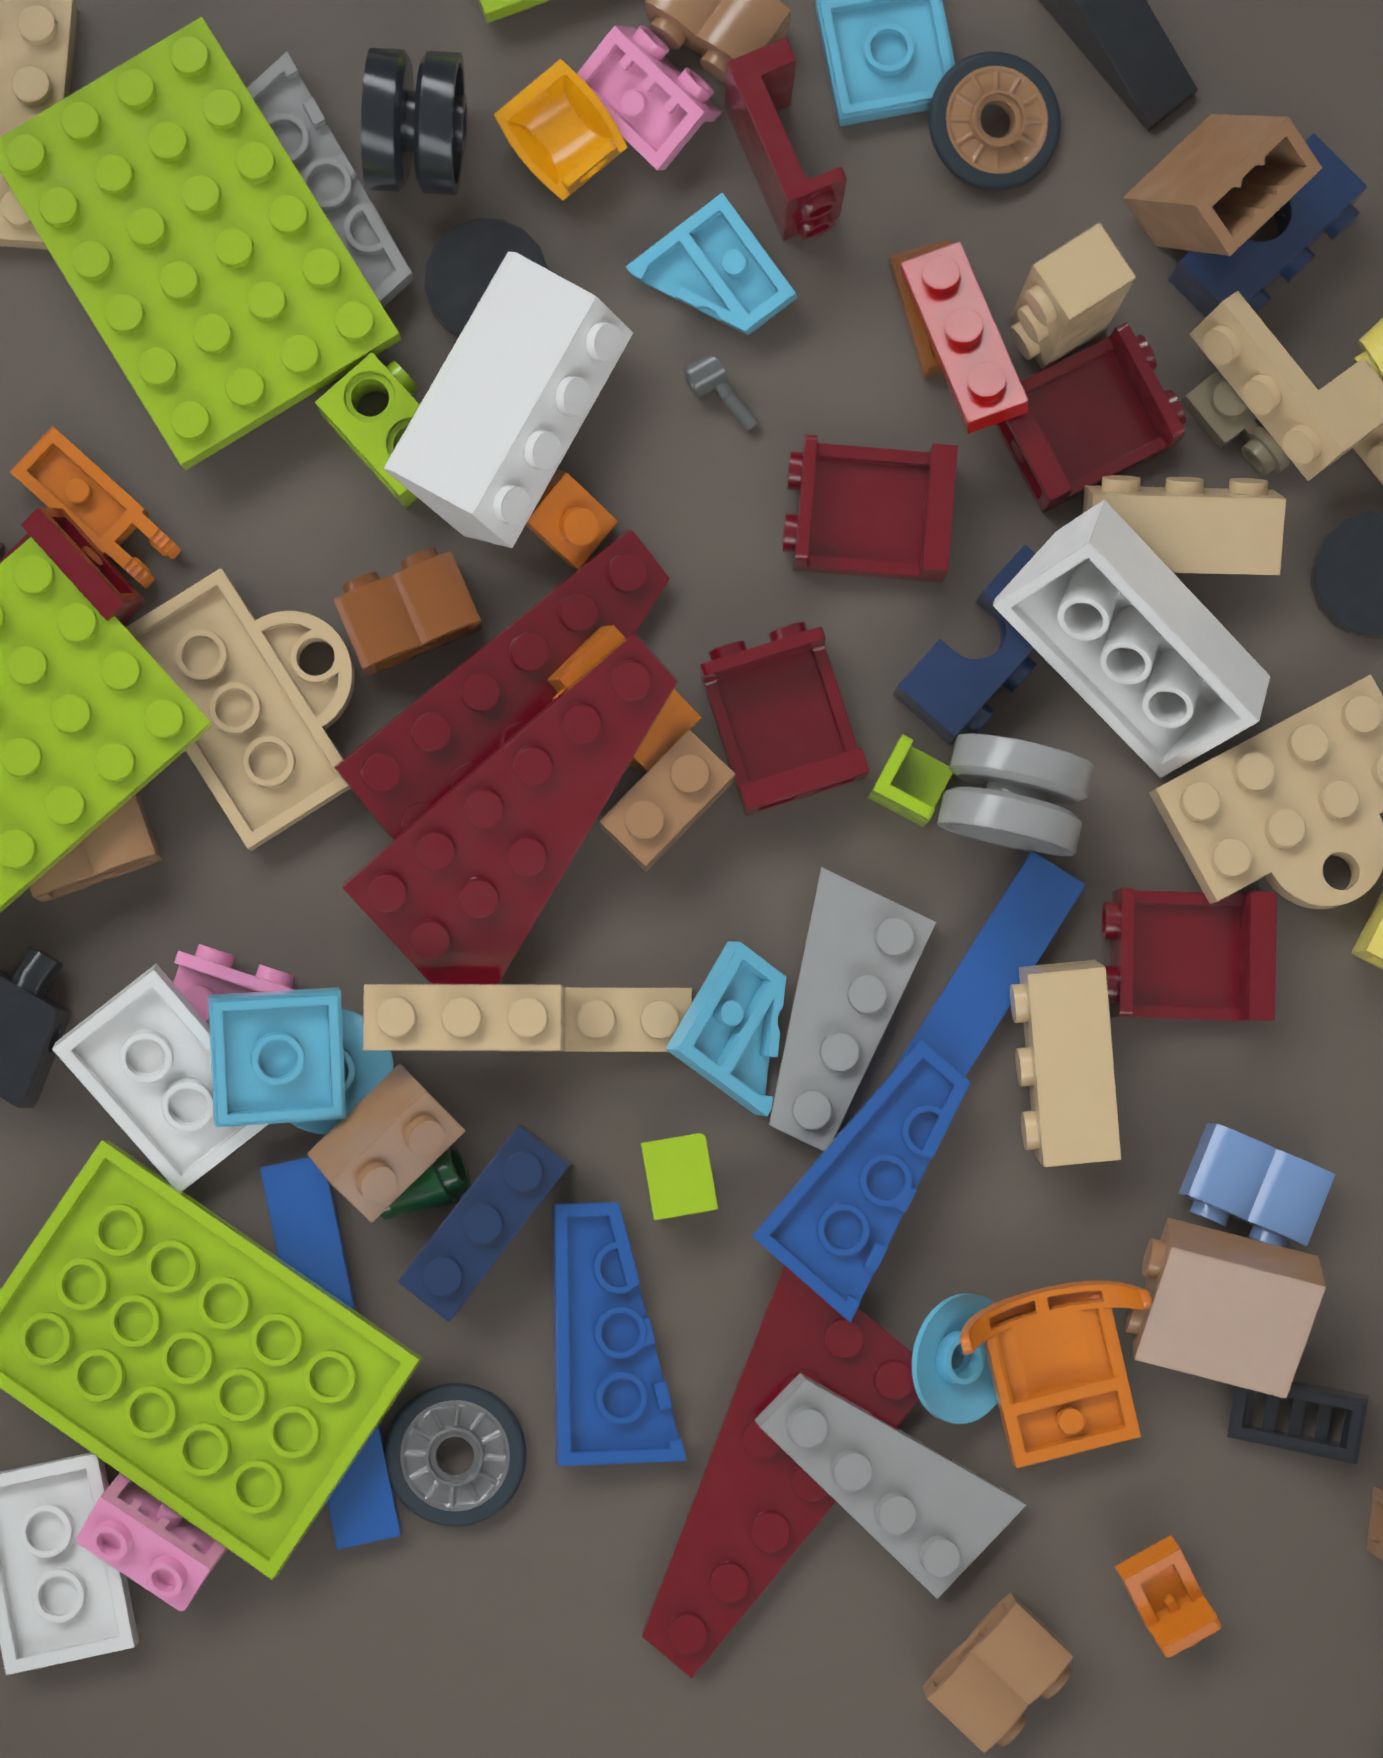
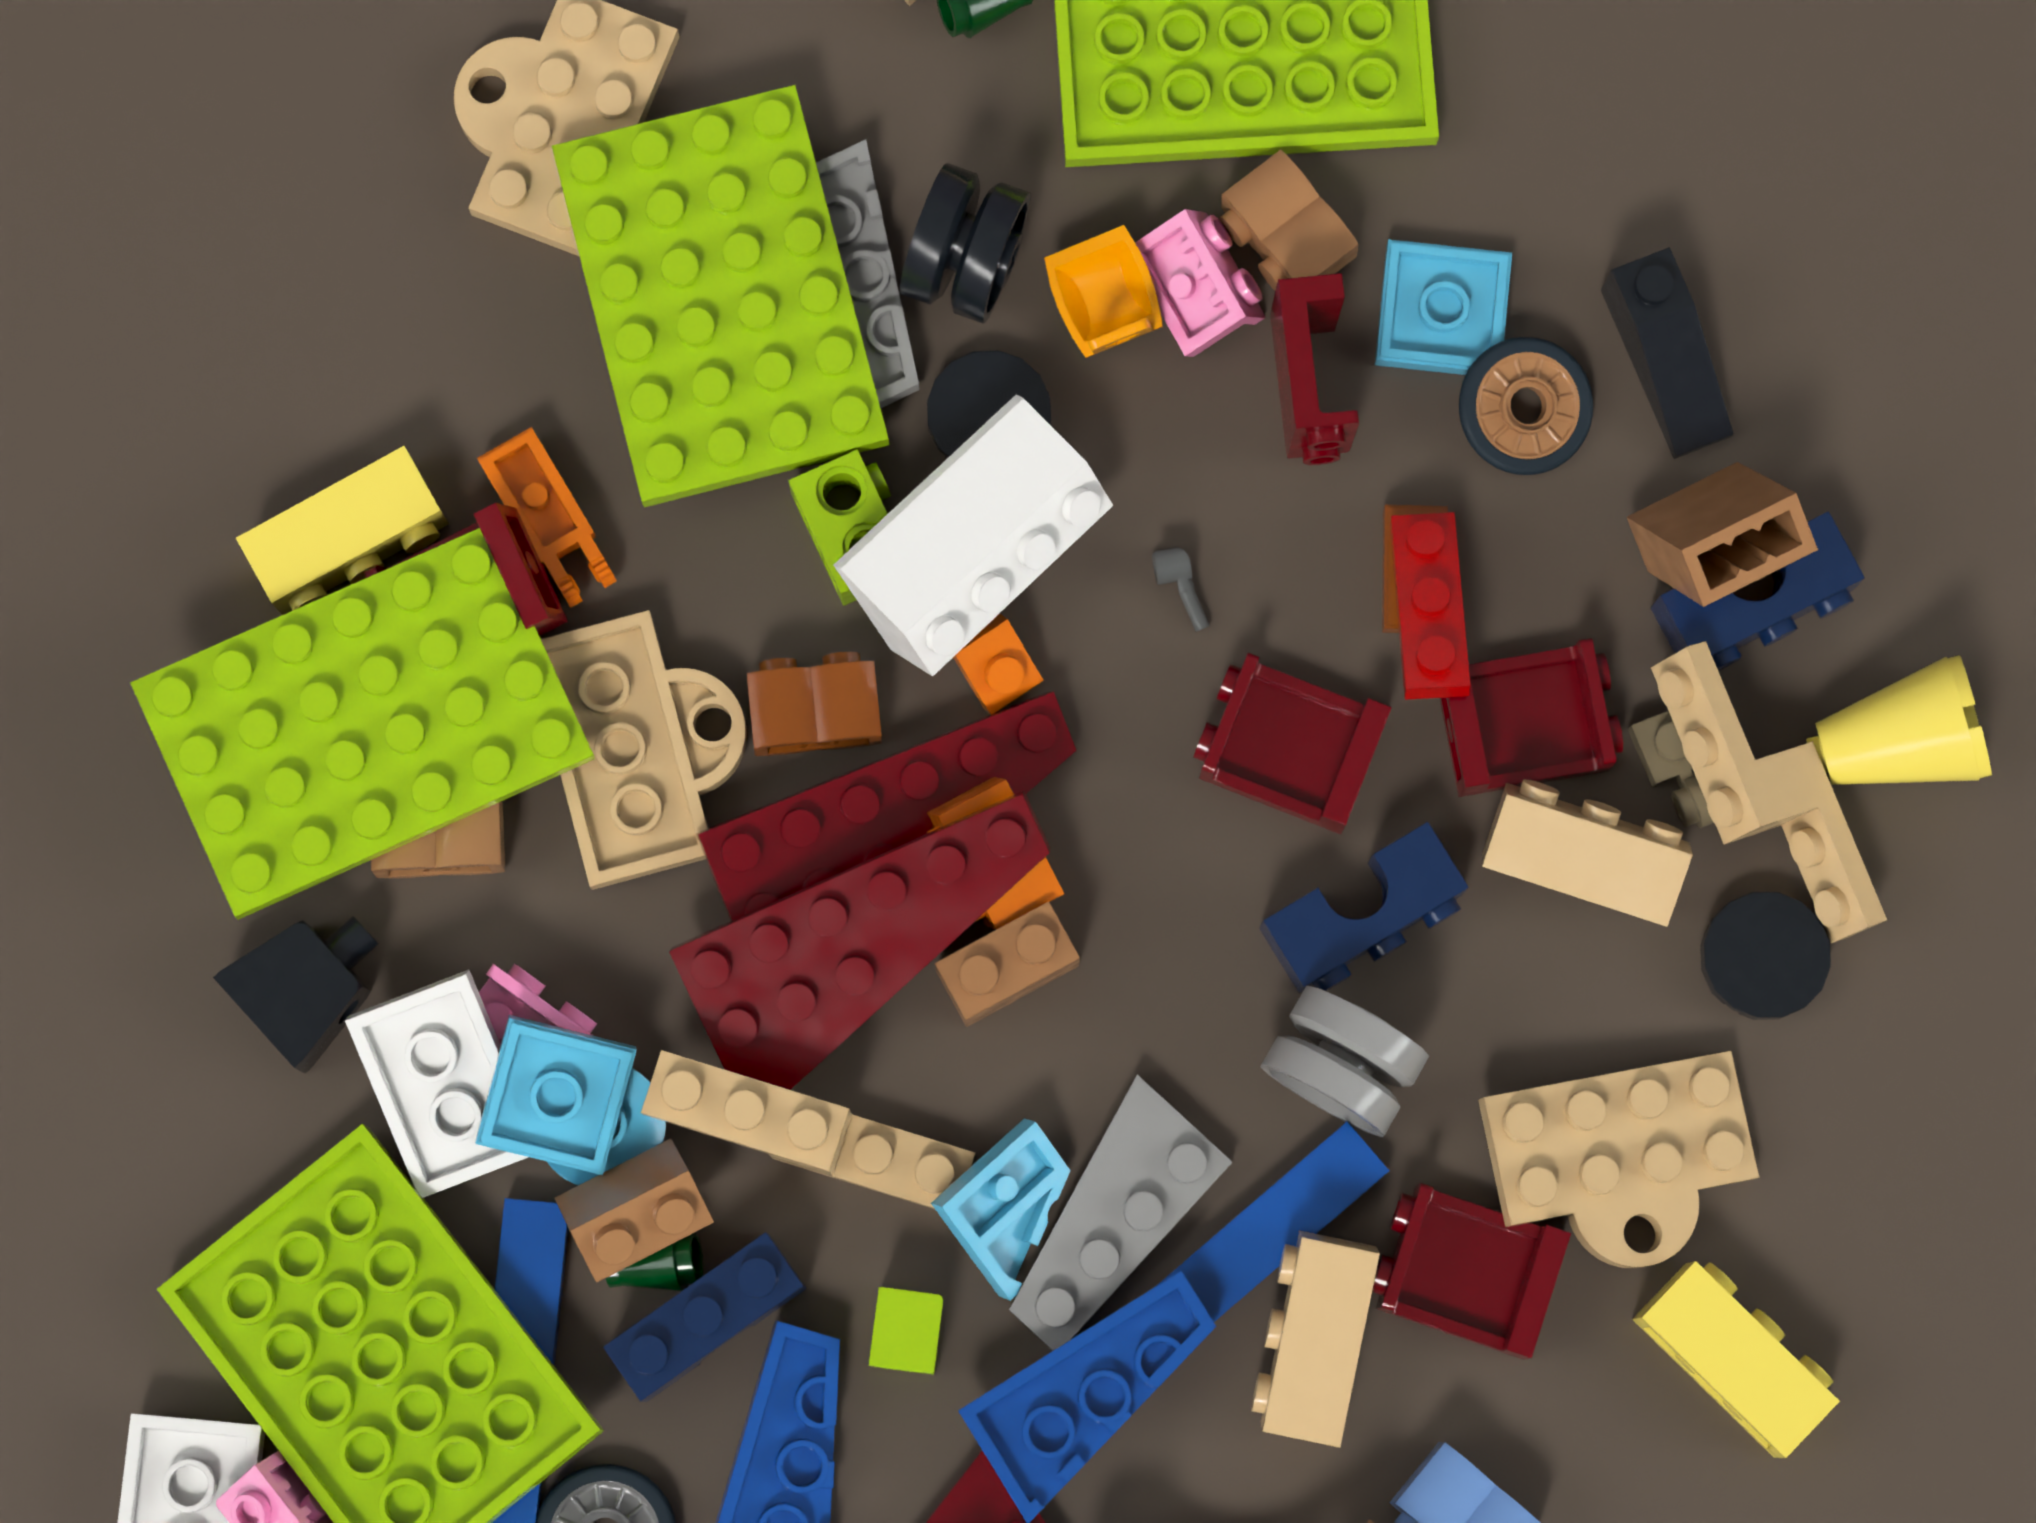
camera: 20 degrees right, 5 degrees down
(716, 269) = (1213, 467): medium azure wing -> none
(782, 718) = (1143, 918): dark red panel -> none
(911, 782) = (1249, 1018): lime panel -> none
(1070, 297) = (1539, 600): tan brick -> none
(1134, 641) = (1505, 948): white slope -> none

